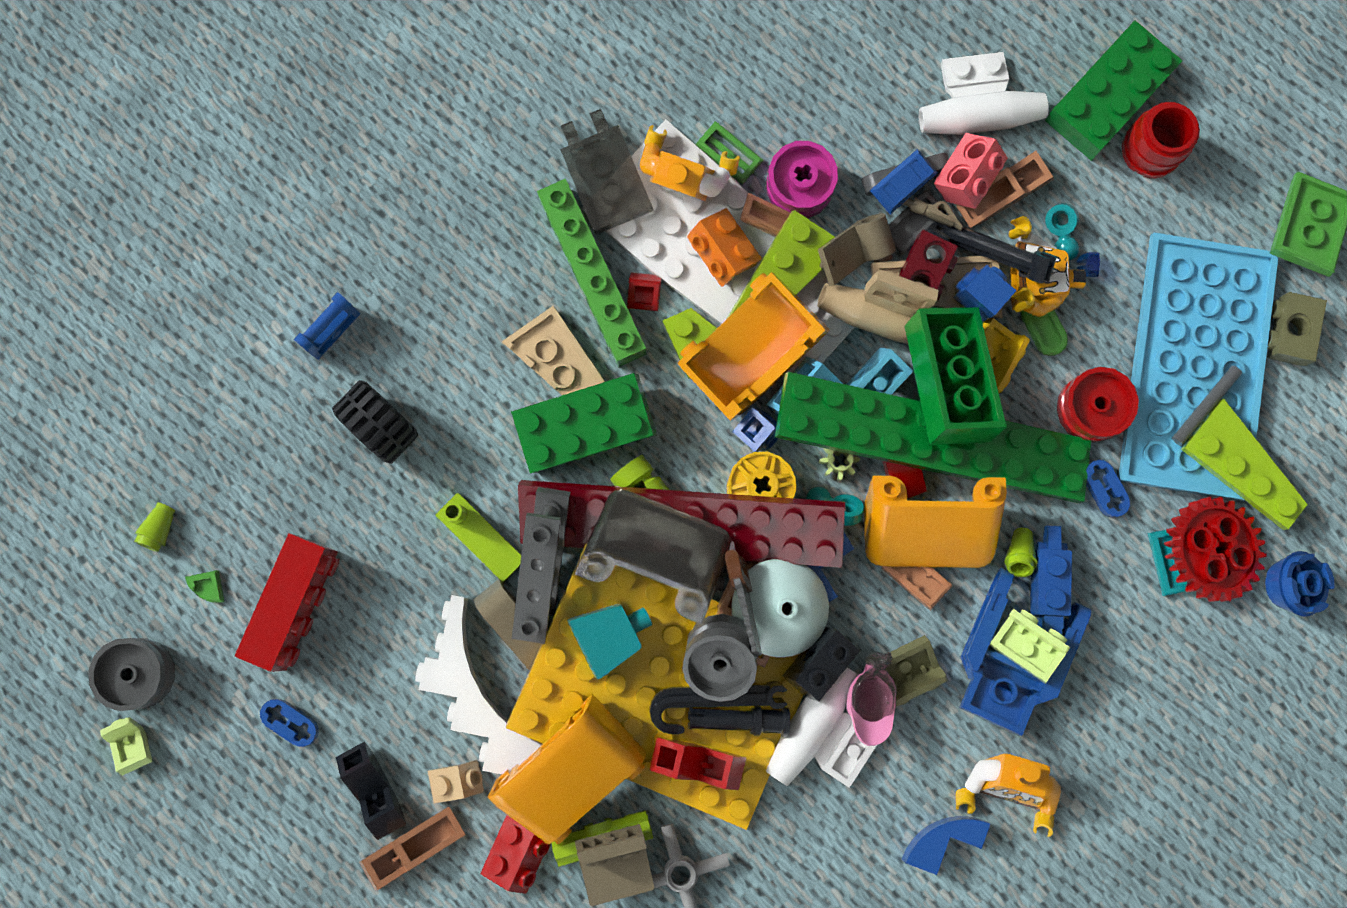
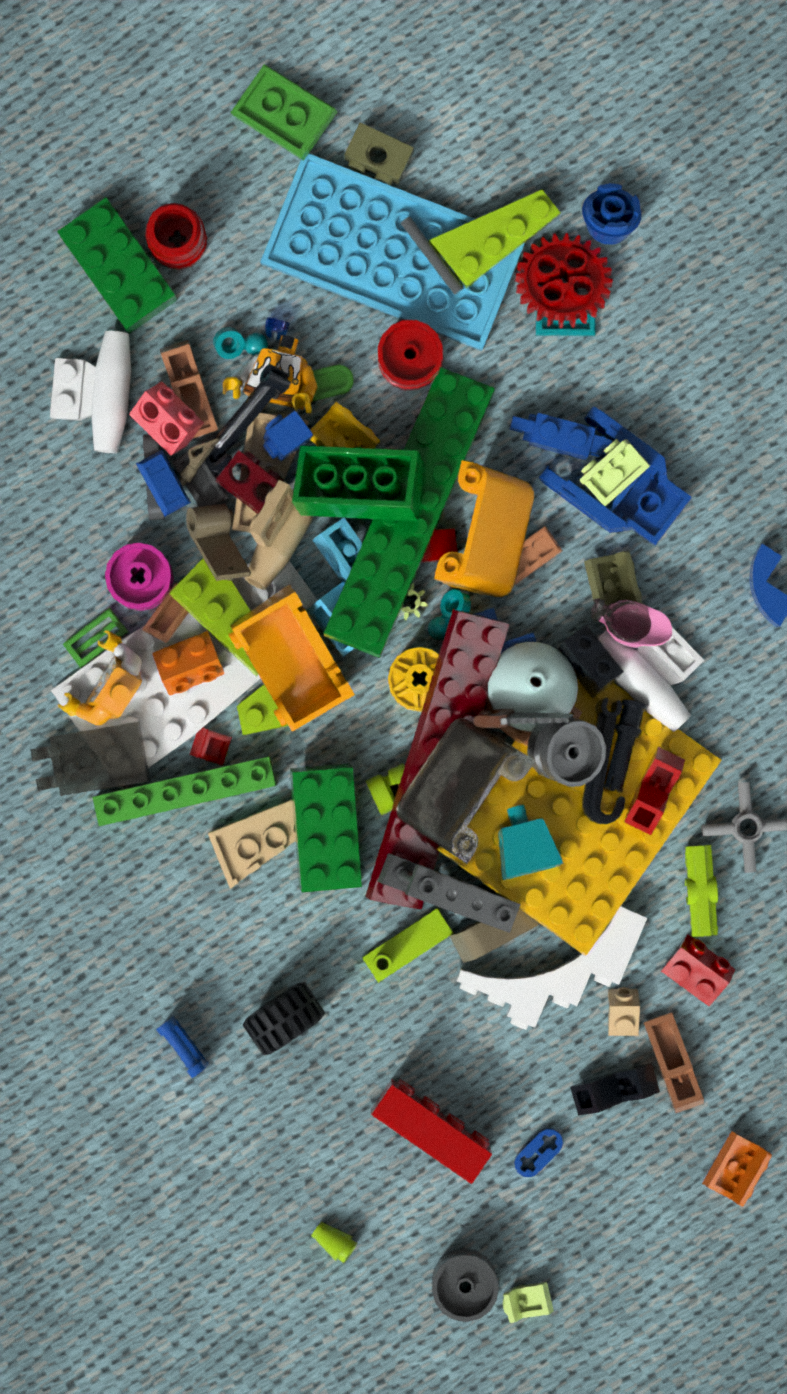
camera: 80 degrees left, 5 degrees up
(207, 586) = (398, 1205): bright green tile -> none
(569, 773) = (638, 906): light orange windscreen -> none
(614, 865) = (726, 883): dark tan bracket -> none
(759, 434) = (366, 671): blue brick -> none
(1014, 781) = (730, 511): torso -> none
(1021, 555) = (529, 456): lime cone -> none
(1112, 484) = (485, 356): blue beam -> none

